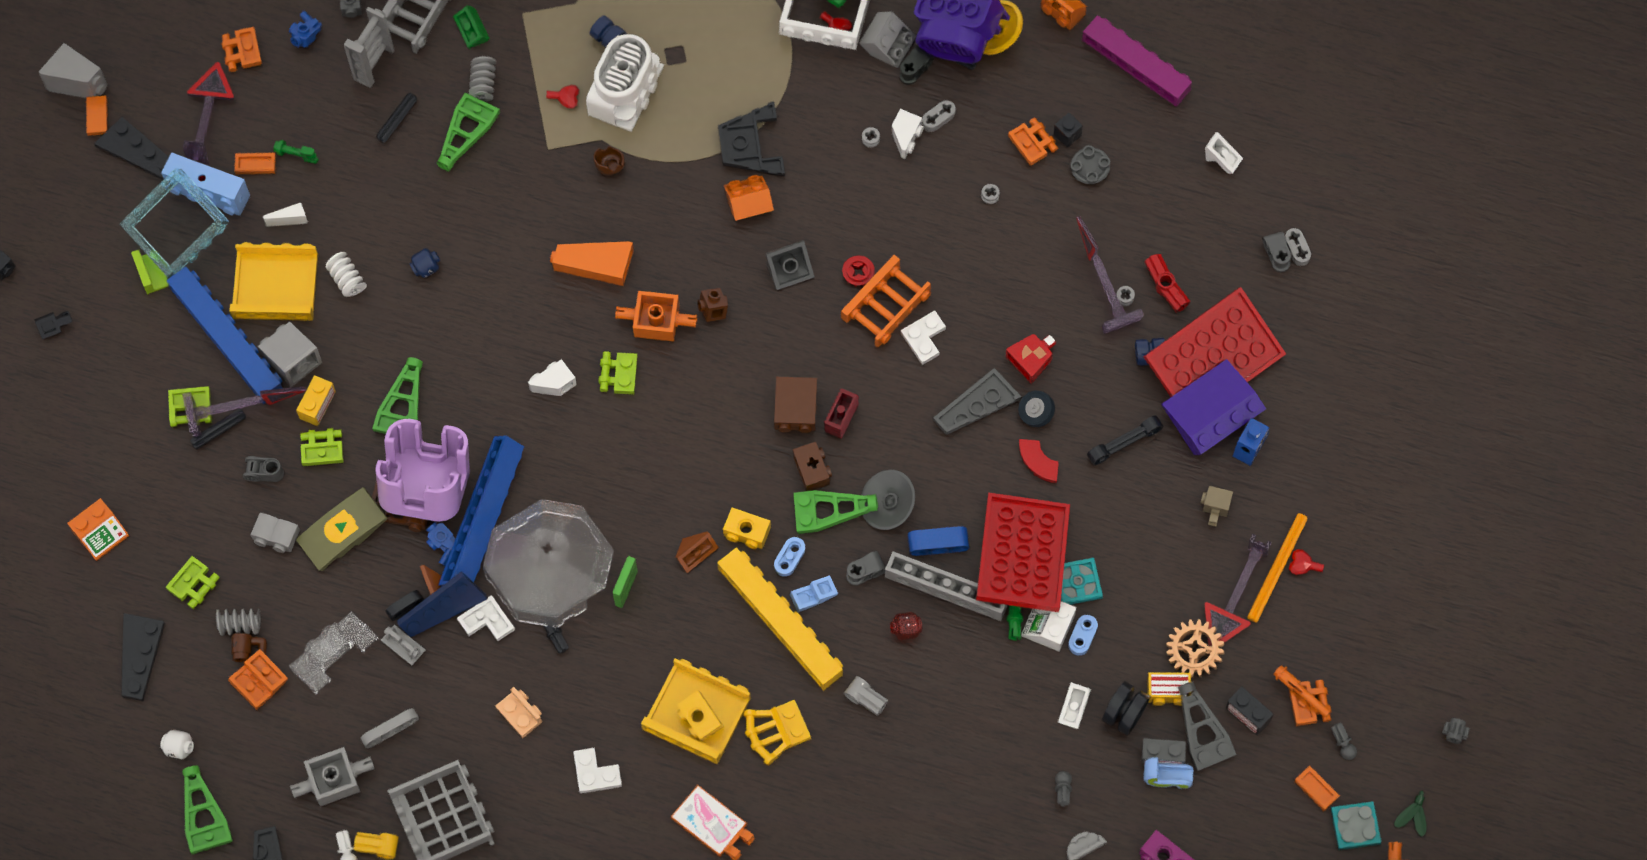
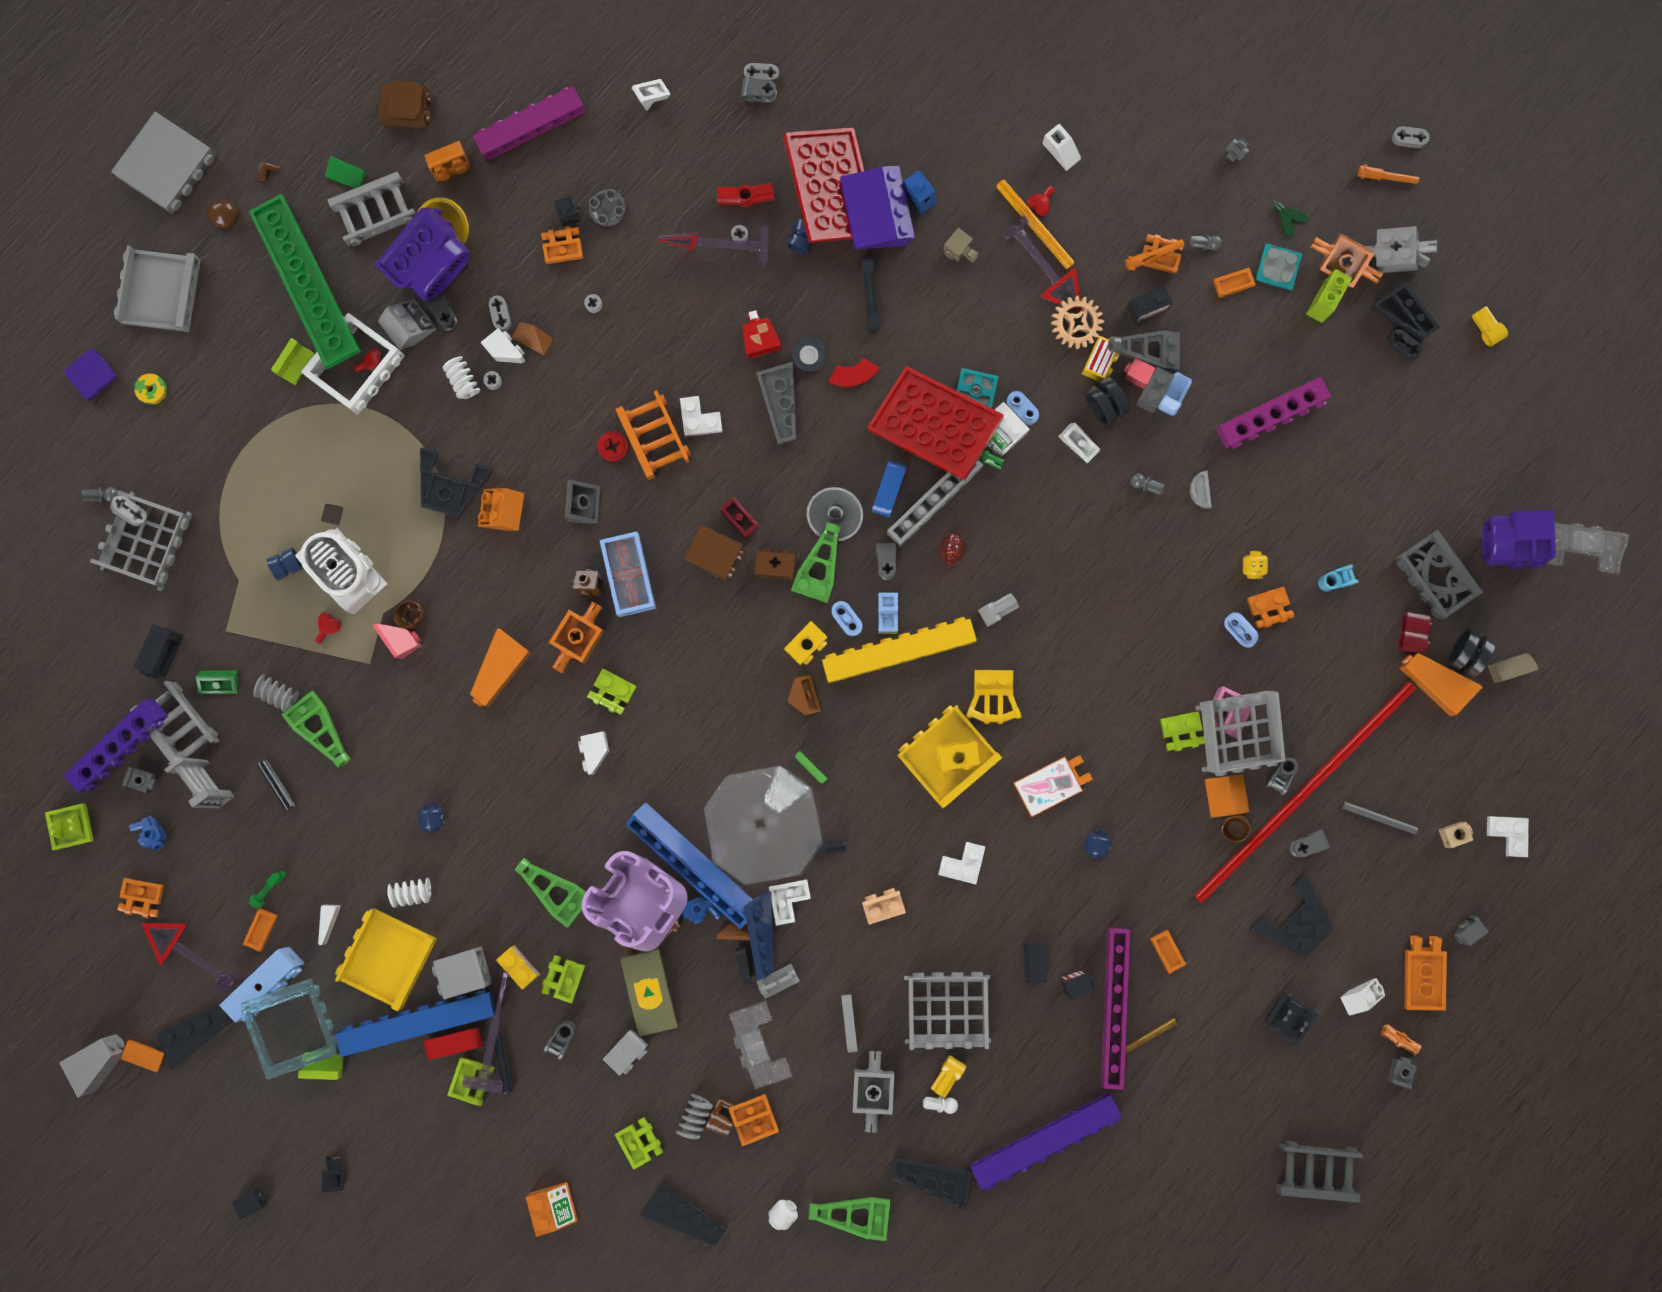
camera: 70 degrees left, 15 degrees up
(219, 375) = (453, 1043): none -> red beam
(578, 160) = (398, 640): none -> coral slope
(738, 335) = (627, 574): none -> clear brick
(857, 106) = (459, 378): none -> white piece
(929, 155) = (532, 338): none -> dark orange slope
(1173, 728) = (1139, 373): none -> coral brick
(1367, 557) = (1062, 147): none -> white slope

